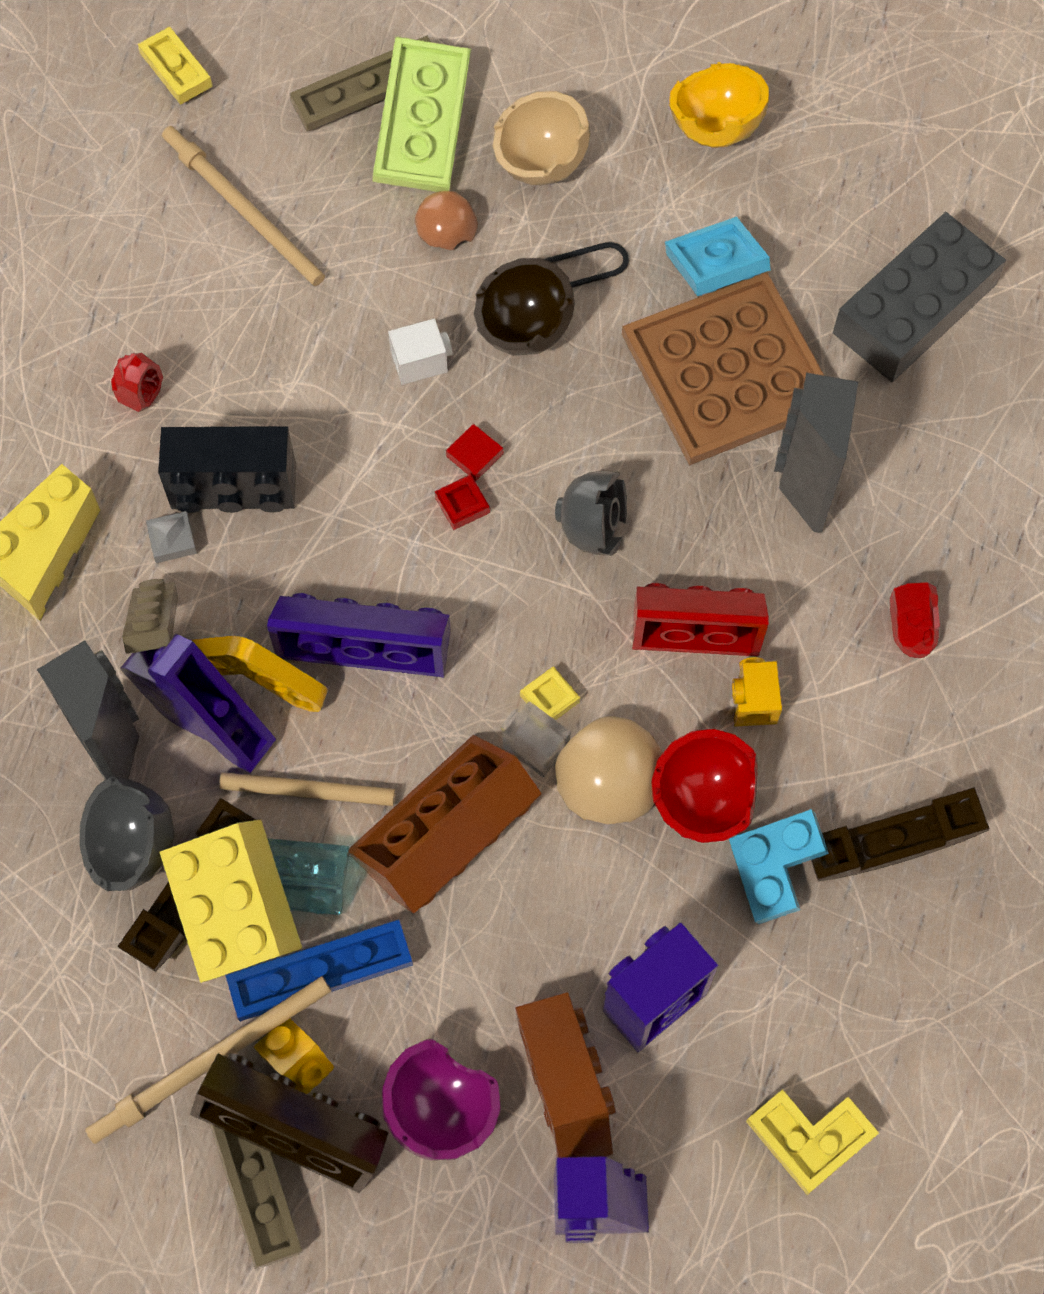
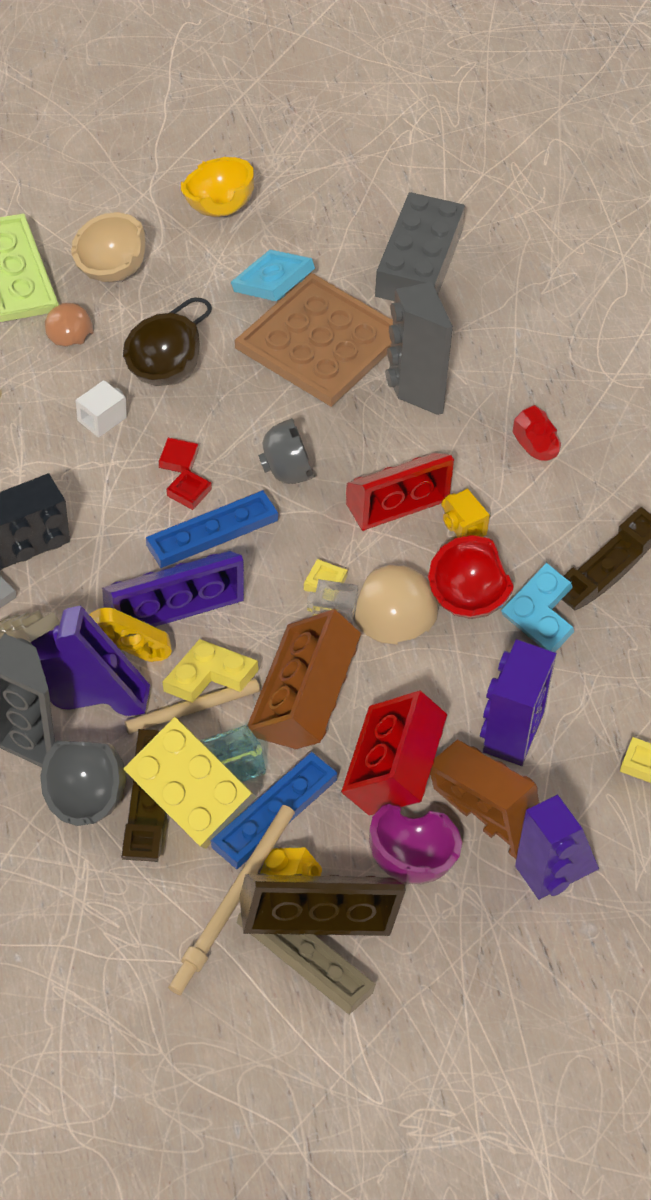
camera: 30 degrees left, 15 degrees down
(349, 745) = (205, 664): none -> light yellow plate
(455, 569) = (211, 529): none -> blue plate
(483, 976) = (394, 752): none -> red brick

